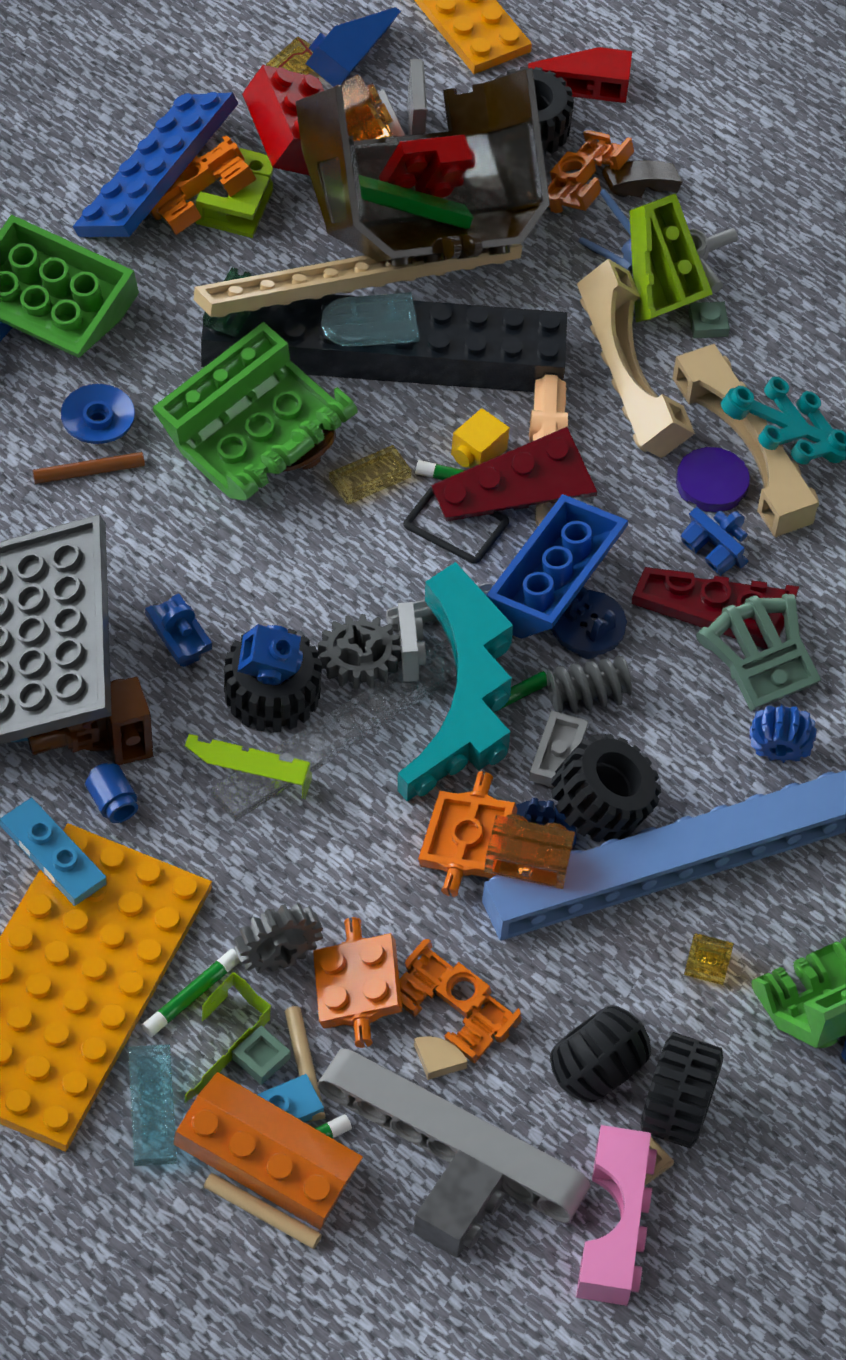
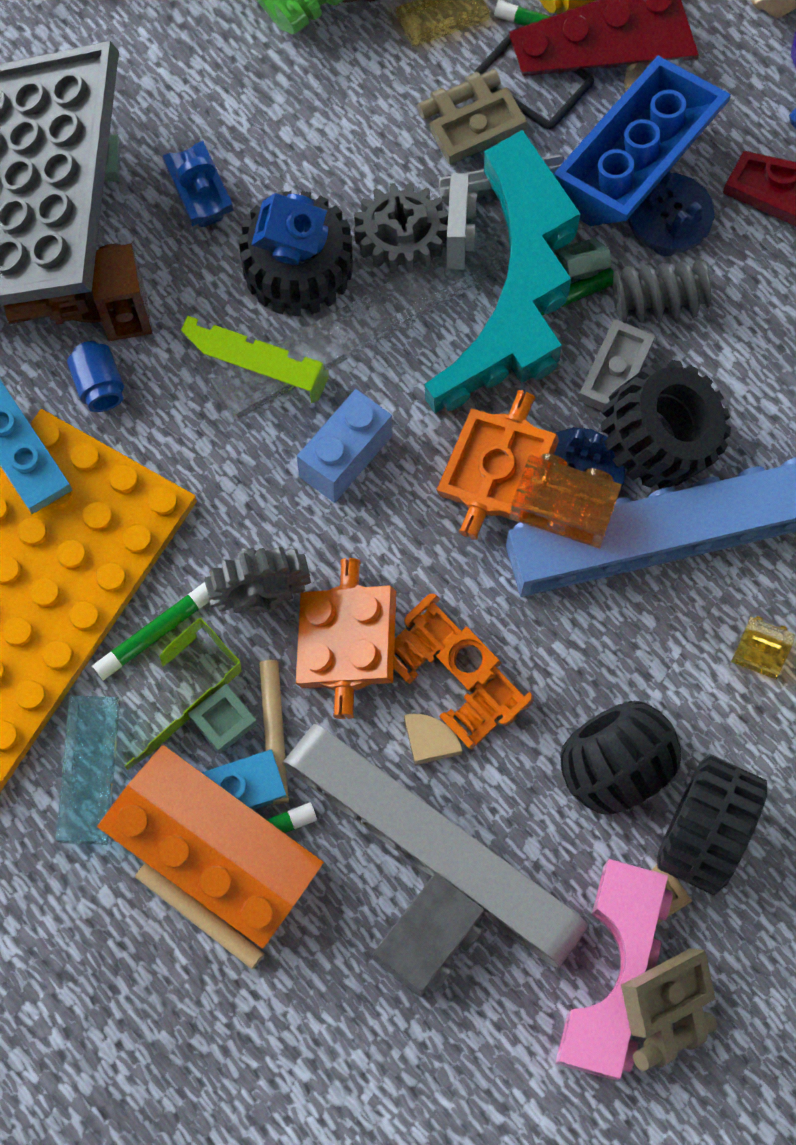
camera: 10 degrees right, 15 degrees up
(335, 830) = (344, 445): none -> medium blue piece
(411, 564) = (477, 124): none -> dark tan plate
(521, 664) = (584, 258): none -> sand green plate
(661, 1221) = (663, 996): none -> dark tan plate

